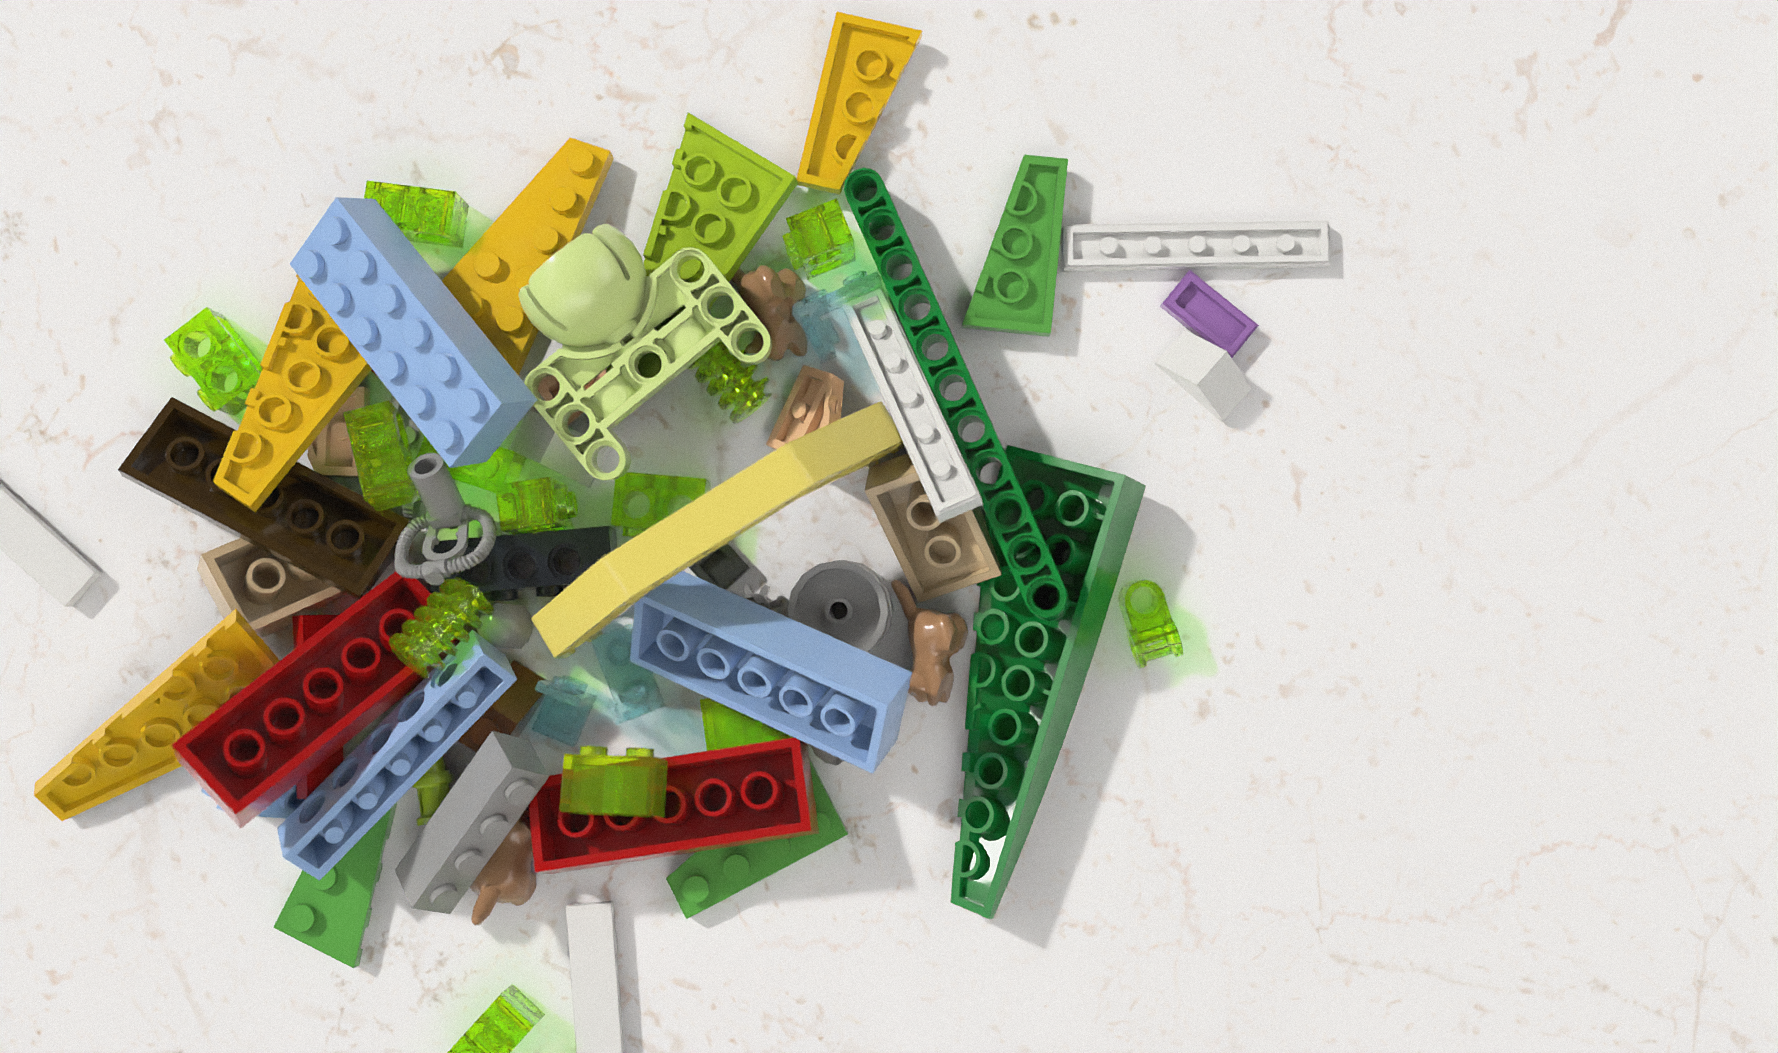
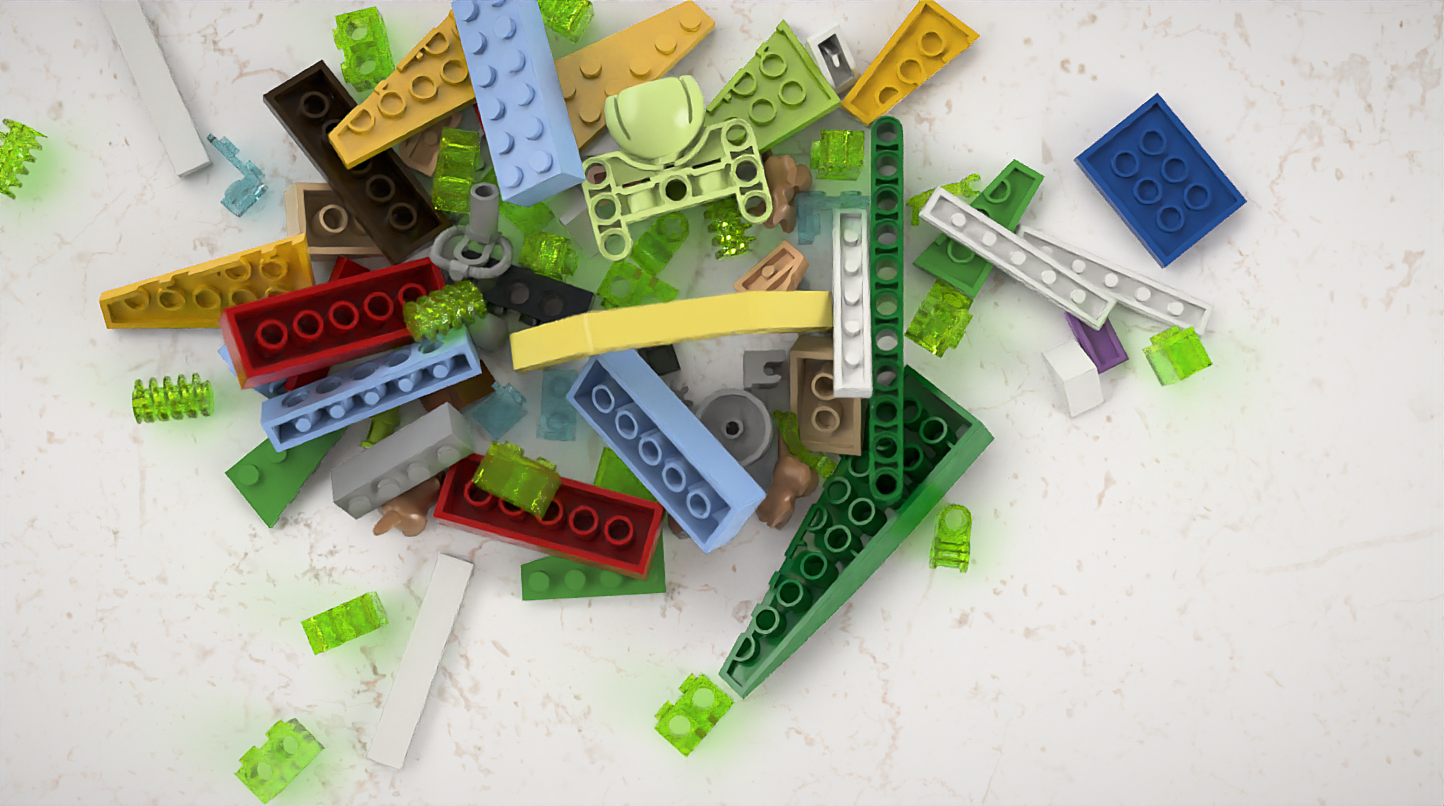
camera: 15 degrees right, 0 degrees up
(152, 592) = (242, 193): none -> clear light blue bracket
(173, 872) = (172, 399): none -> clear neon green piece
(660, 441) = (657, 248): none -> clear neon green piece
(764, 130) = (833, 57): none -> white slope
(837, 530) = (758, 368): none -> light grey hinge
(907, 582) = (790, 430): none -> clear neon green piece
(953, 961) = (700, 718): none -> clear neon green brick
(957, 232) = (954, 188): none -> clear neon green piece
(1022, 376) = (940, 319): none -> clear neon green brick
(1079, 266) = (1017, 258): none -> white tile
(1201, 105) = (1160, 180): none -> blue plate
(1311, 295) = (1176, 355): none -> clear neon green brick

